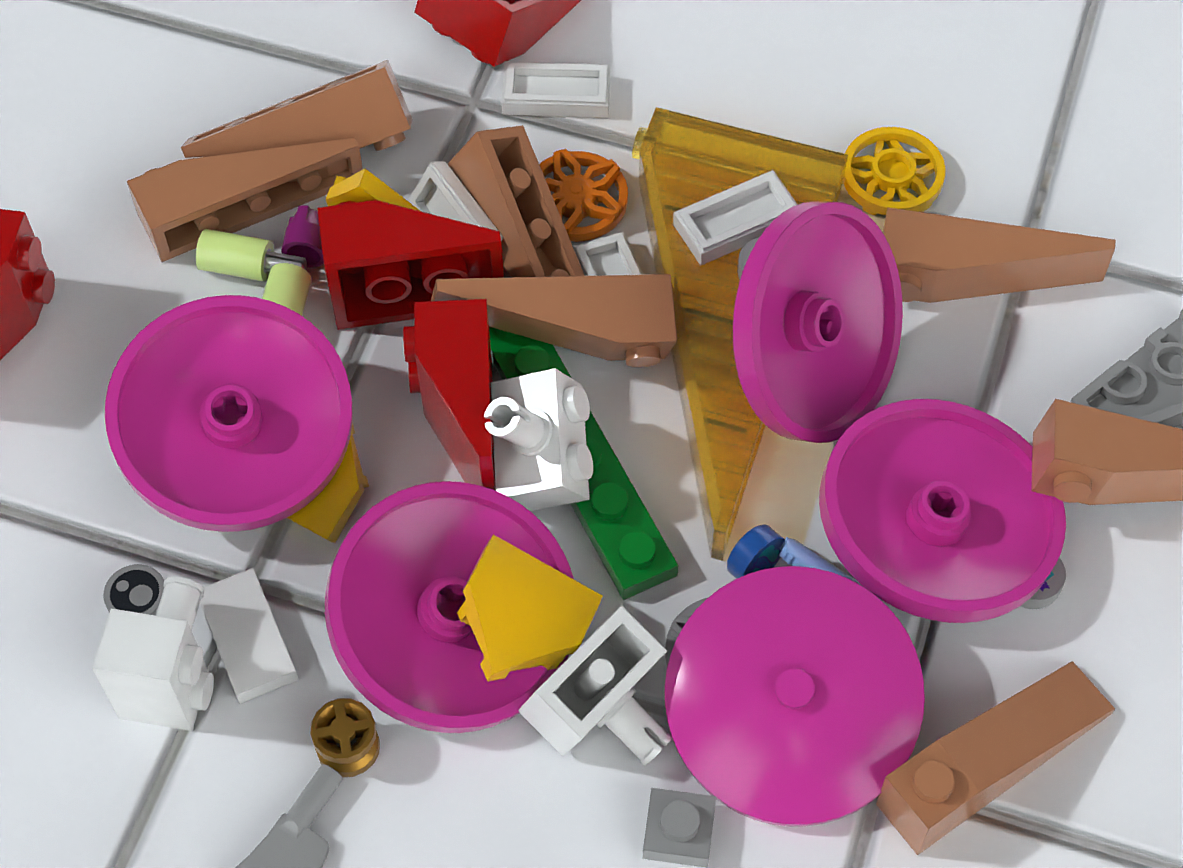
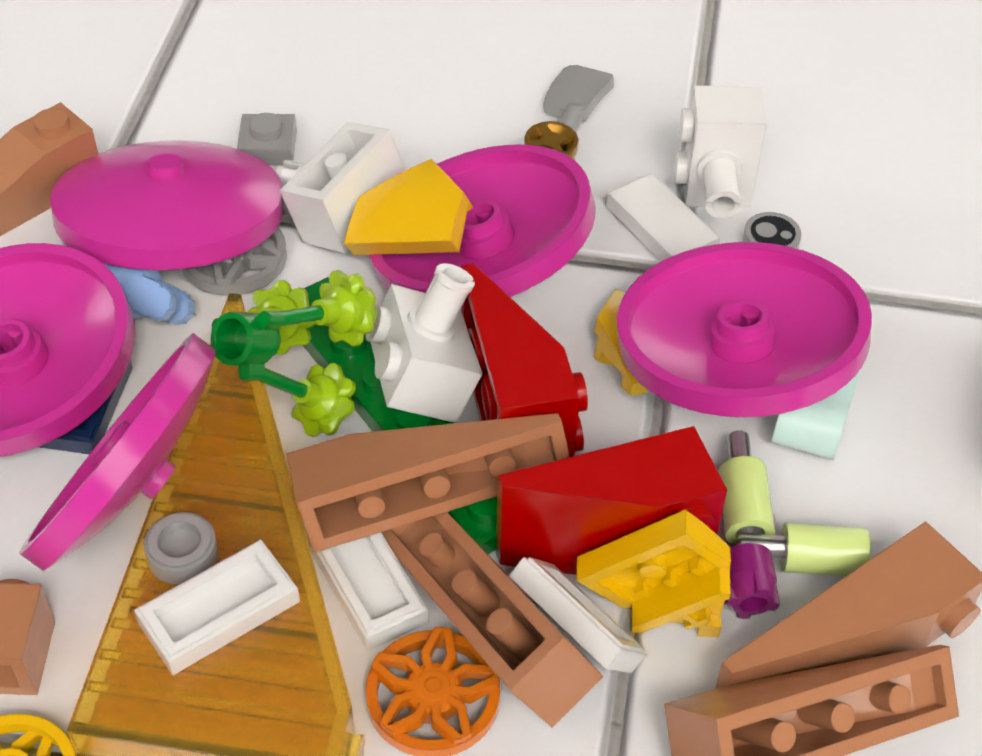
camera: 170 degrees right, 10 degrees down
(640, 441) = (281, 323): none -> lime plant
(755, 551) = (198, 309): blue tile -> none

